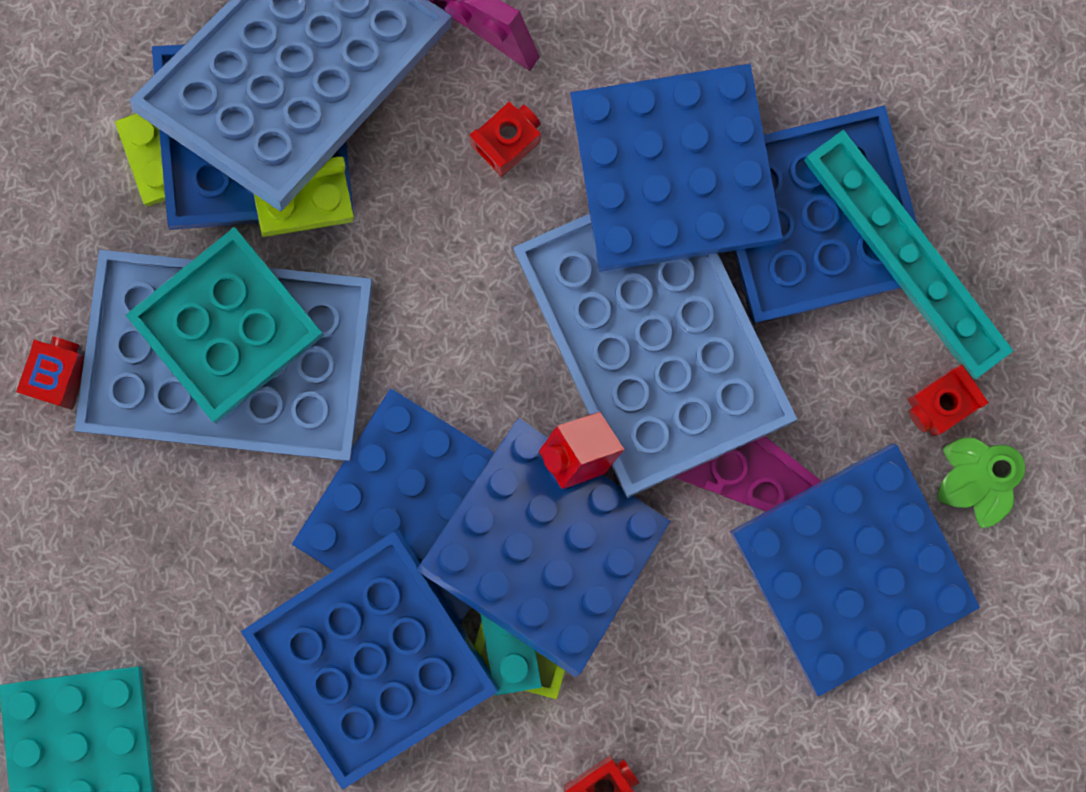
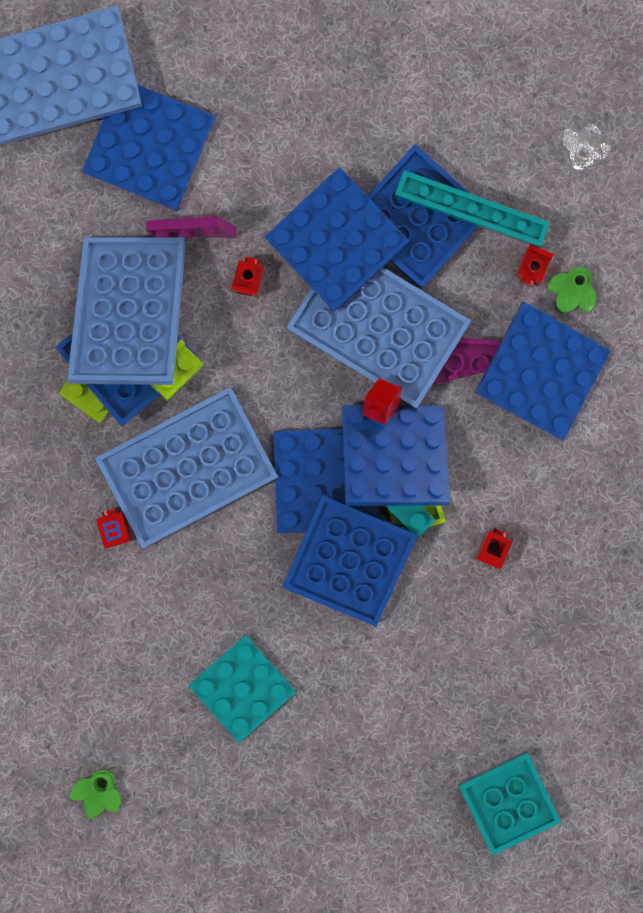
camera: 35 degrees left, 5 degrees up
(224, 325) = (179, 453): teal plate -> none

